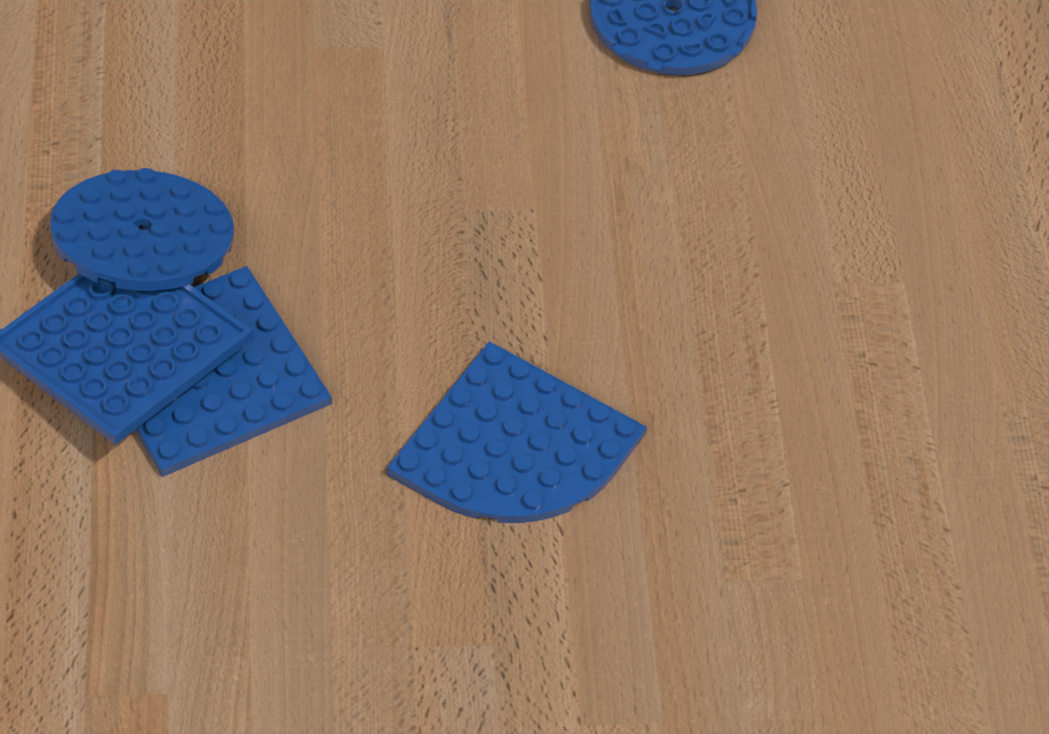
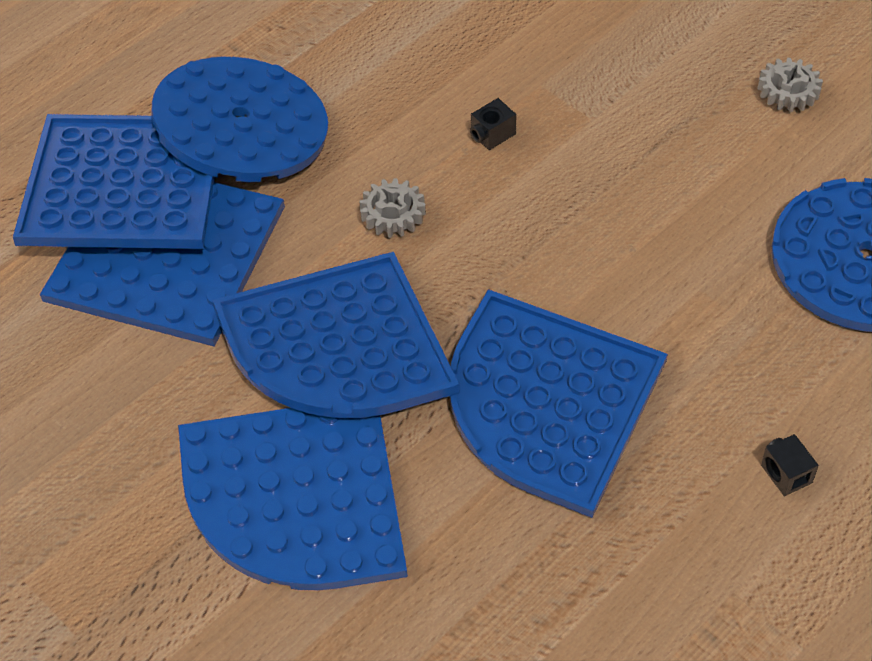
camera: 55 degrees right, 0 degrees up
(327, 98) = (493, 124): none -> black brick
(335, 211) = (392, 207): none -> light grey gear
(422, 325) = (338, 341): none -> blue plate
(595, 255) = (549, 399): none -> blue plate
(782, 179) = (789, 464): none -> black brick

